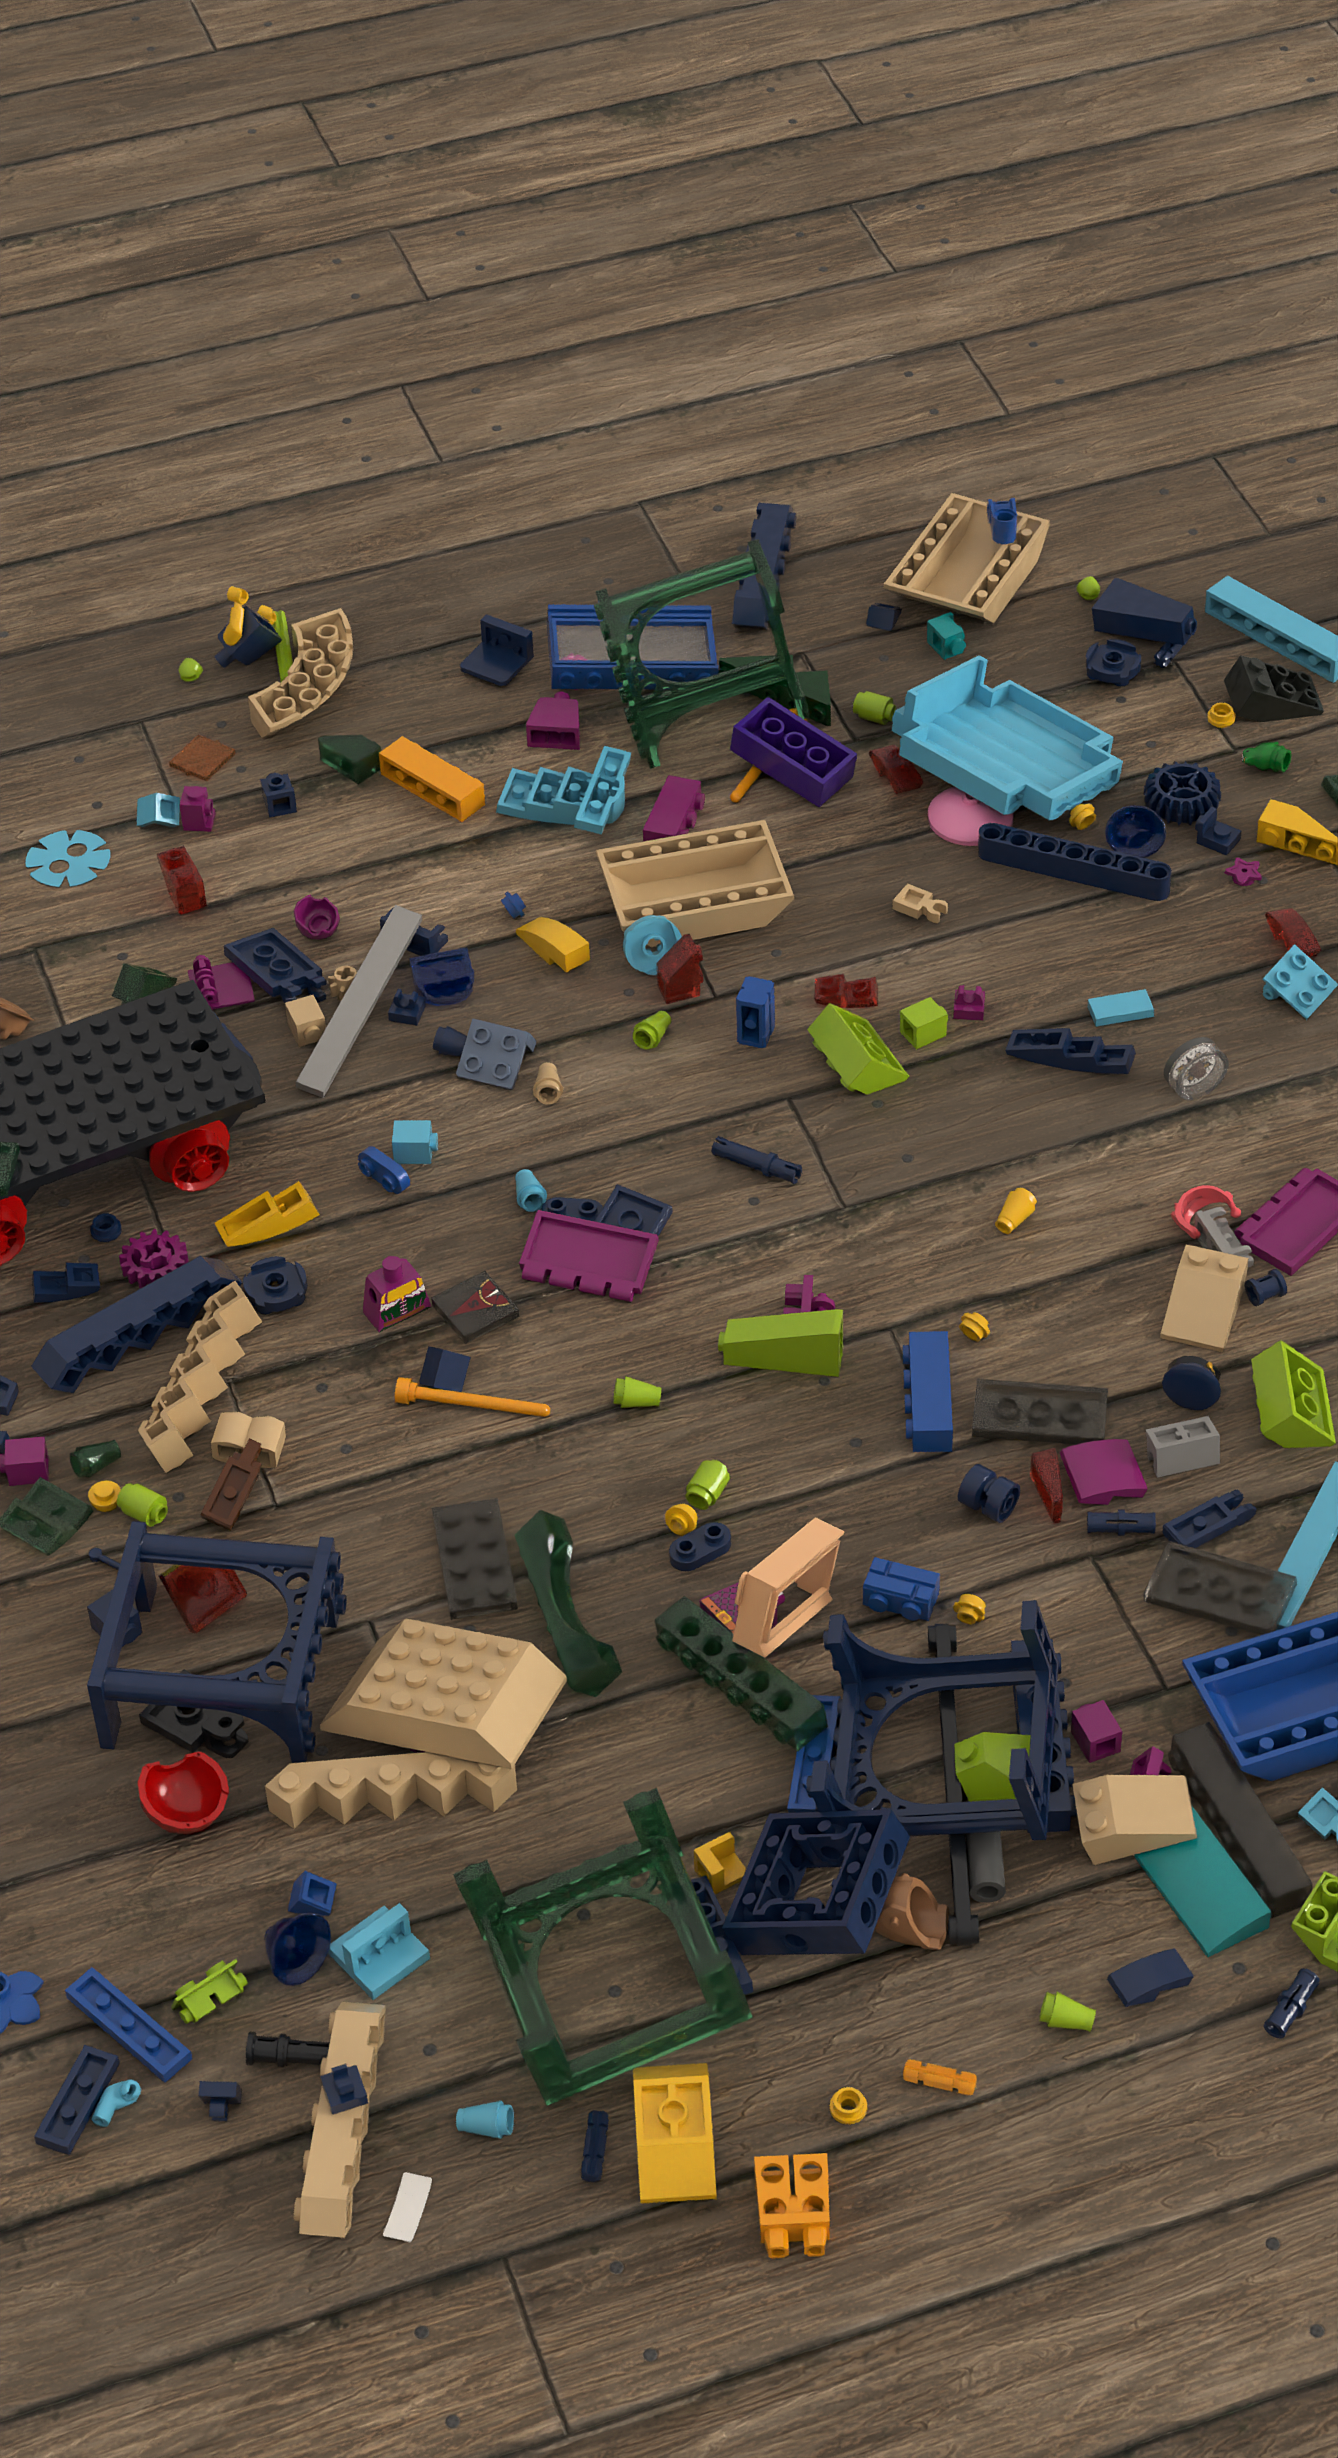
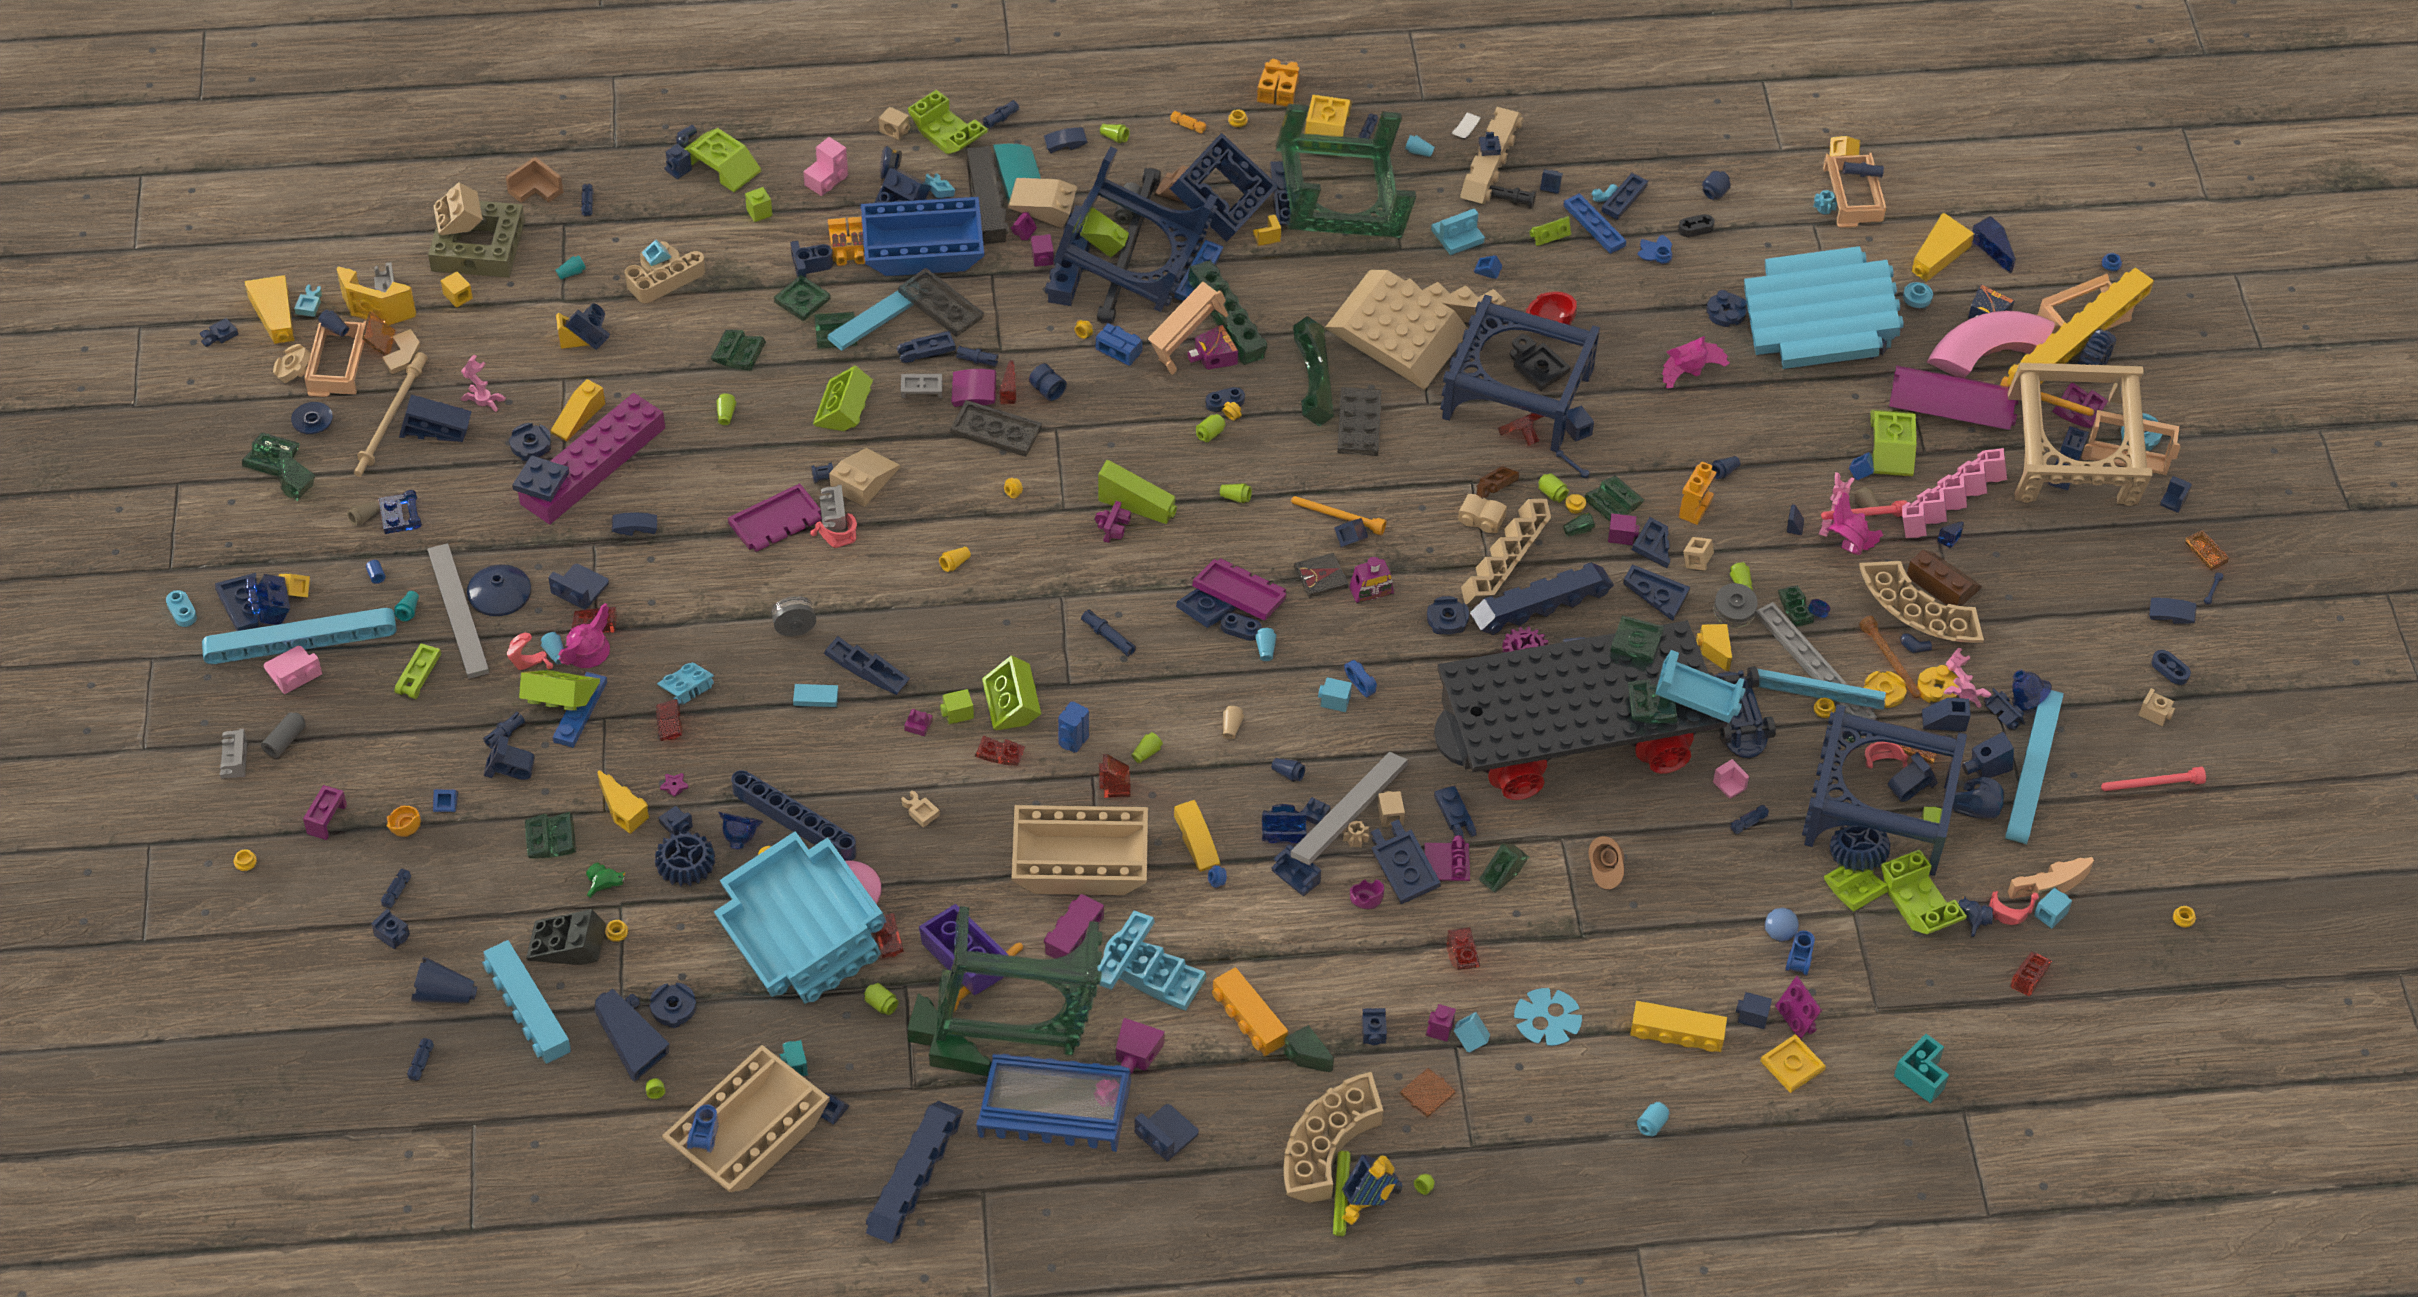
camera: 170 degrees left, 5 degrees up
(267, 1216) = (1425, 664): yellow slope -> none
(297, 1947) = (1503, 234): clear blue hat -> none
(494, 1054) = (1259, 754): sand blue bracket -> none
(639, 934) = (1128, 800): medium azure plate -> none
(929, 1392) = (1057, 453): blue brick -> none
(1192, 1383) = (898, 416): dark blue piece -> none

